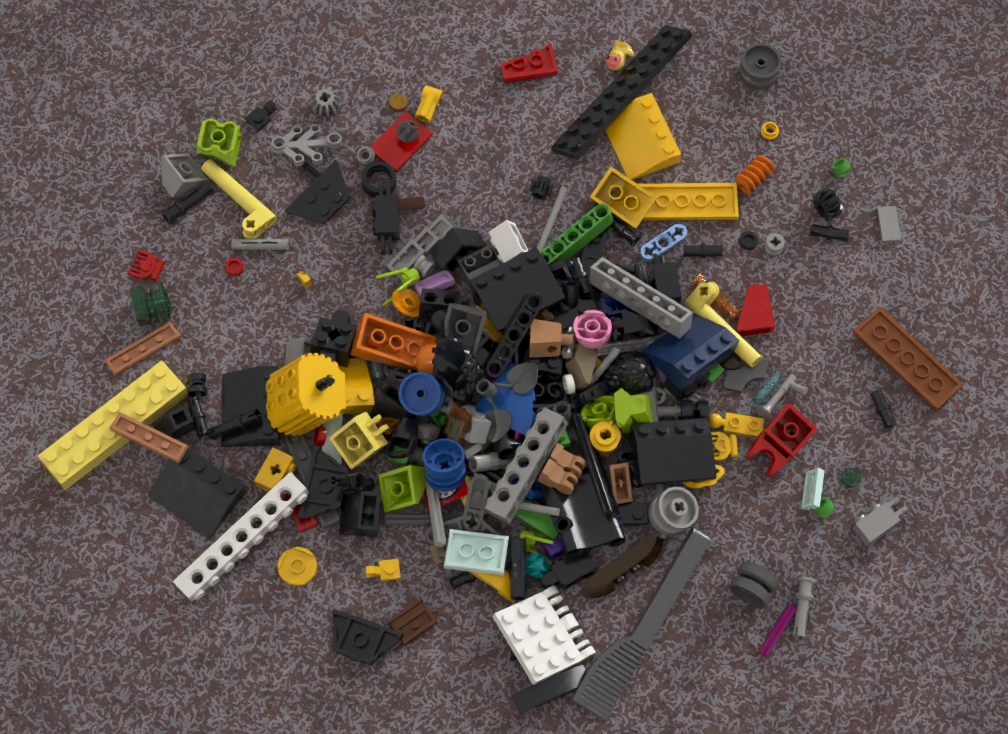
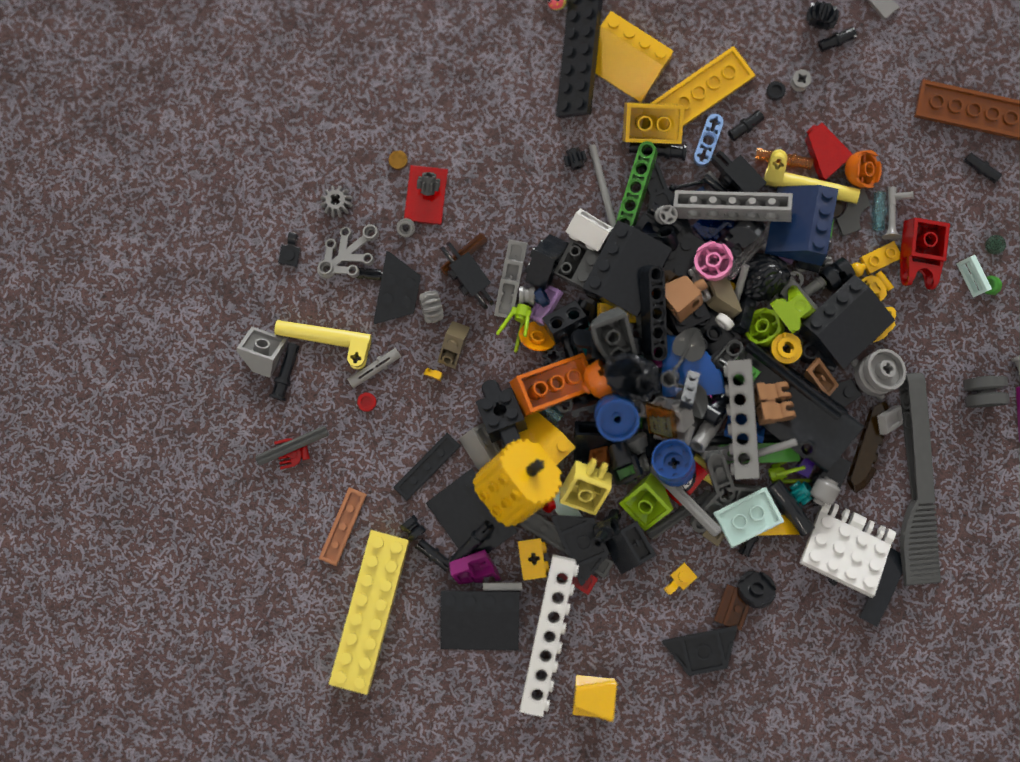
camera: 30 degrees left, 15 degrees up
(149, 437) = (411, 607): nougat tile -> none
(150, 303) = (323, 486): clear green wheel -> none
(151, 259) = (292, 445): none -> dark grey axle
(176, 423) = (420, 578): black slope -> none
(219, 141) = (273, 299): lime piece -> none
(222, 447) = (473, 568): none -> magenta slope
(236, 476) = (502, 586): none -> light grey tile
(242, 614) = (594, 697): none -> yellow piece
(244, 346) = (427, 466): none -> black tile
(292, 569) = (603, 619): yellow tile -> none
(336, 265) = (453, 344): none -> dark tan slope
(340, 225) = (431, 306): none -> light grey gear
(373, 167) = (420, 235): black tyre -> none
(428, 104) = (425, 142): yellow piece -> none
(434, 273) = (541, 297): none -> dark blue tile
(442, 618) = (756, 589): none -> black tile
(496, 409) = (689, 390): none -> piece
(533, 66) = (489, 50): red wing -> none
(555, 571) = (825, 491): none -> light grey head
(583, 268) = (670, 214): none -> light grey wheel
(654, 554) = (890, 419): none -> light grey tile
(753, 174) = (742, 28): orange piece -> none
(776, 343) = (863, 169): none -> orange cylinder

